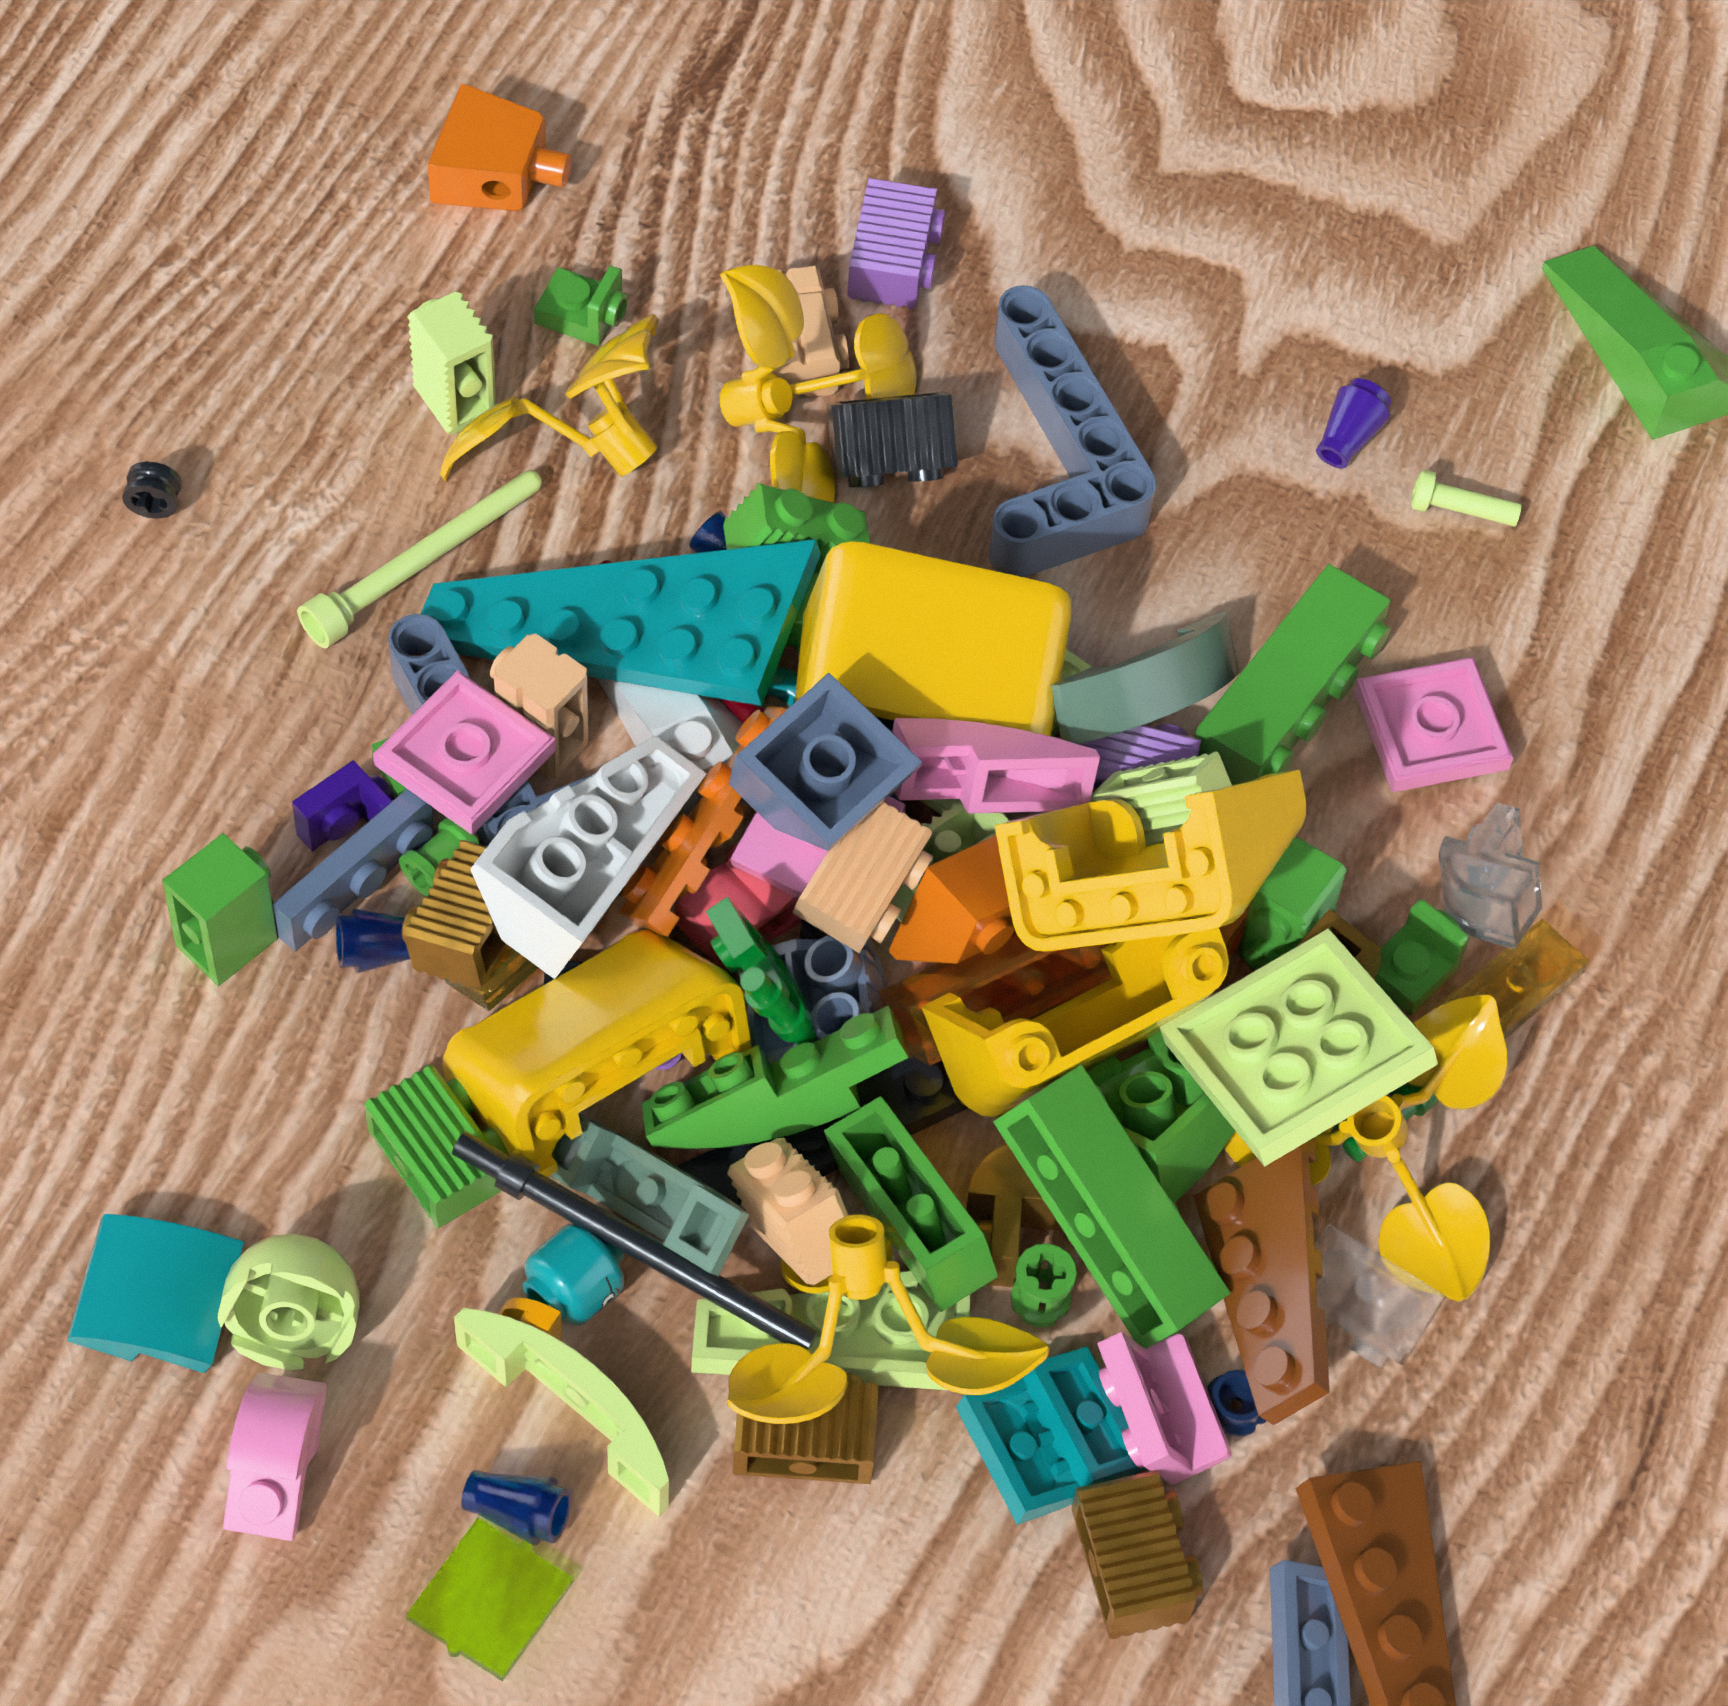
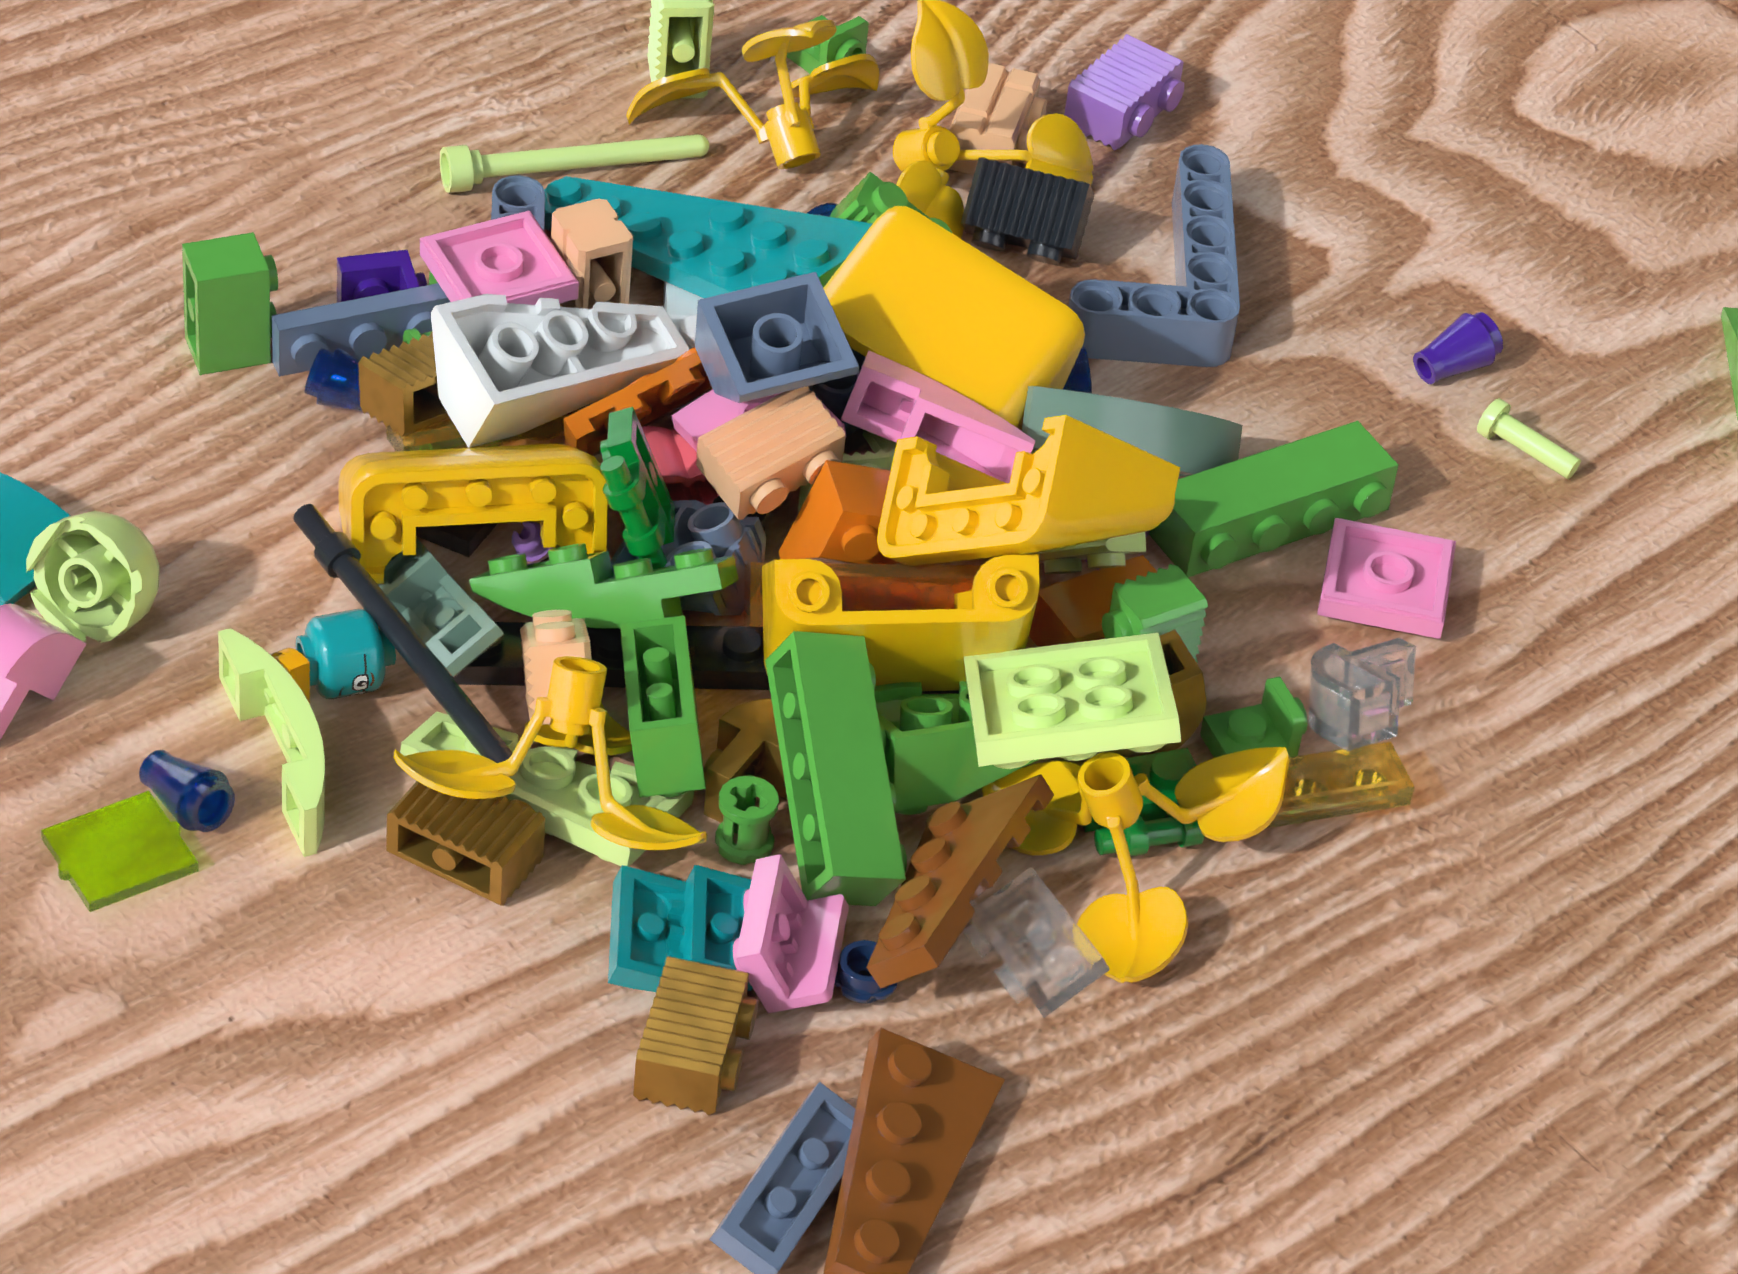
camera: 25 degrees right, 15 degrees down
(152, 490) = (378, 39): black bush -> none
(417, 1132) = (281, 548): bright green brick -> none

